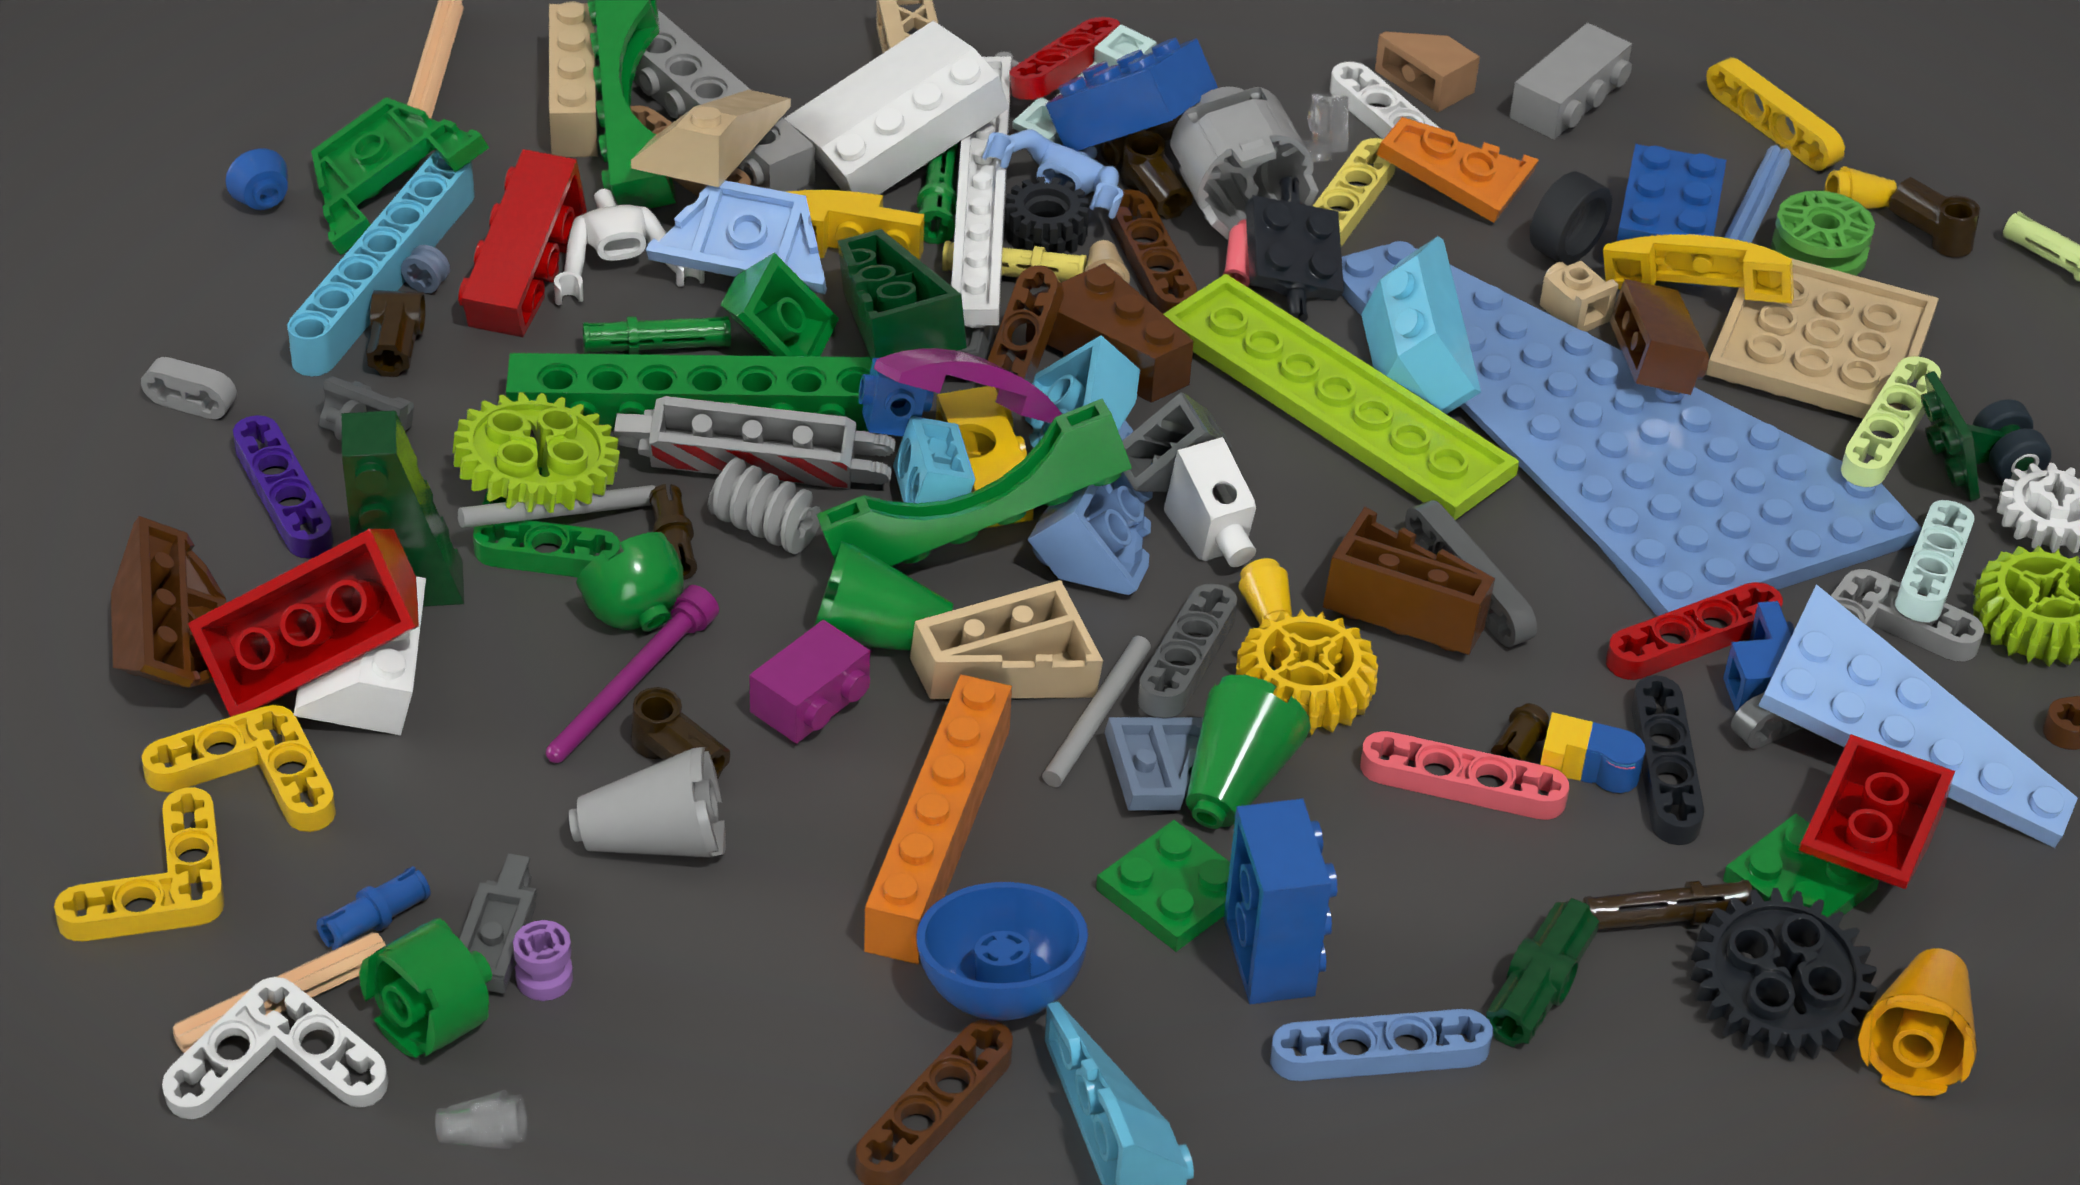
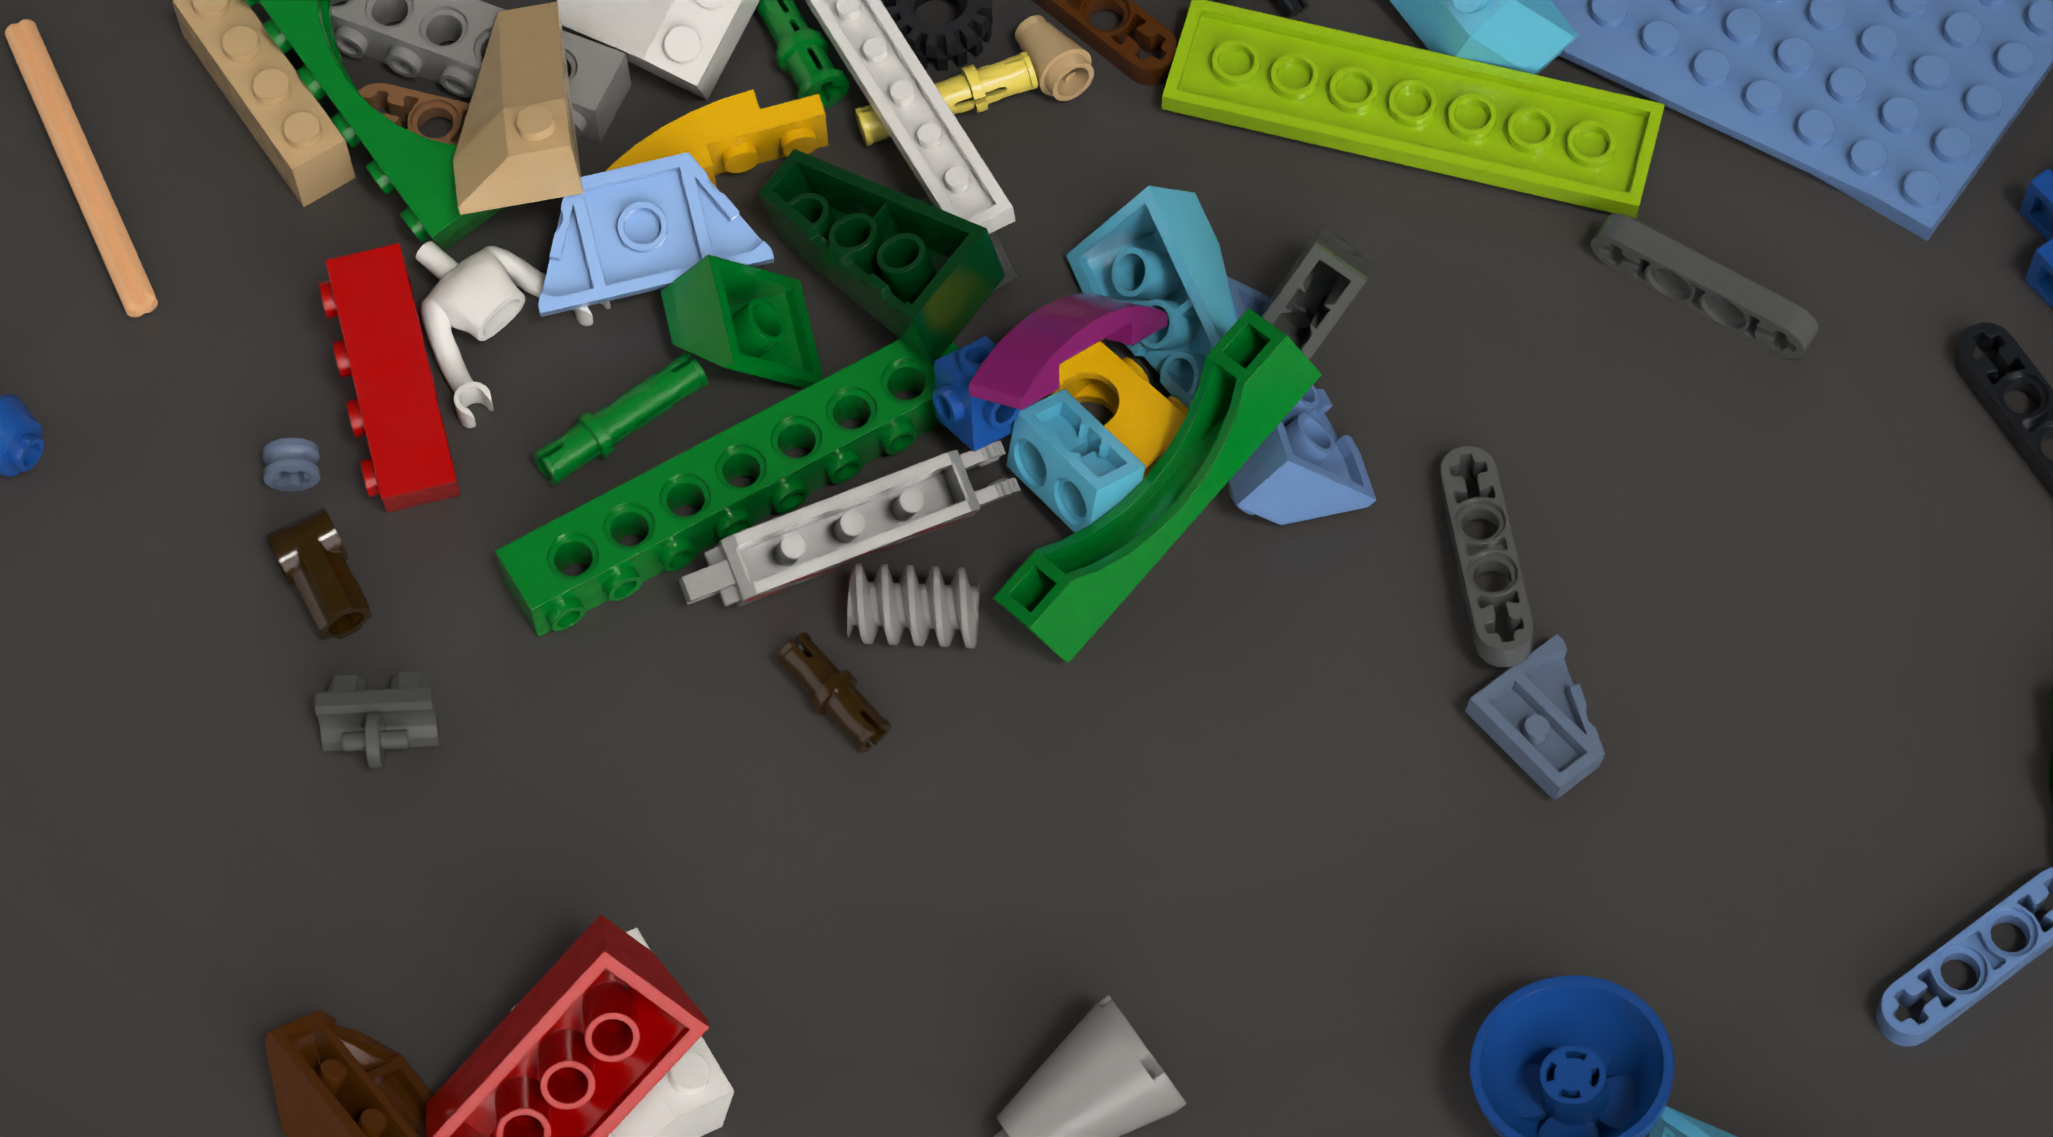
camera: 25 degrees left, 20 degrees up
(188, 388) = (146, 787): light grey beam -> none
(287, 484) = (355, 858): dark purple beam -> none
(342, 302) = (235, 502): medium azure beam -> none
(374, 152) = (113, 328): green wing -> none
(390, 493) = (560, 876): dark green wedge -> none
(498, 513) = (687, 731): light grey bar -> none
(503, 457) = (625, 678): lime gear -> none
(561, 562) = (653, 781): green beam -> none
(635, 585) = (858, 800): green cylinder -> none
(665, 731) = (1043, 976): dark brown piece -> none
(691, 612) = (930, 791): magenta piece -> none
(810, 681) = (1131, 823): magenta brick -> none
(875, 600) = (1132, 684): green cone -> none
(938, 816) = (1379, 927): orange brick -> none
(1013, 640) = (1312, 662): tan wedge -> none
(1048, 307) = (1053, 166): reddish brown beam -> none
(1096, 711) = (1434, 683): light grey bar -> none
(1108, 306) = (1117, 141): reddish brown wedge -> none
(1169, 885) = (1657, 868): green plate -> none
(1211, 503) = (1397, 349): white torso -> none
(1241, 747) = (1632, 671): green cone -> none
(1265, 589) = (1519, 434): yellow cone -> none
(1278, 900) = (1816, 862): blue brick -> none
(1307, 661) = (1580, 494): yellow gear -> none
(1406, 587) = (1661, 349): reddish brown wedge -> none
(1465, 768) = (1858, 569): coral beam -> none
(1526, 727) = (1883, 477): dark brown pin -> none
(1594, 753) = (1964, 465): leg -> none
(1733, 606) = (1963, 234): red beam -> none

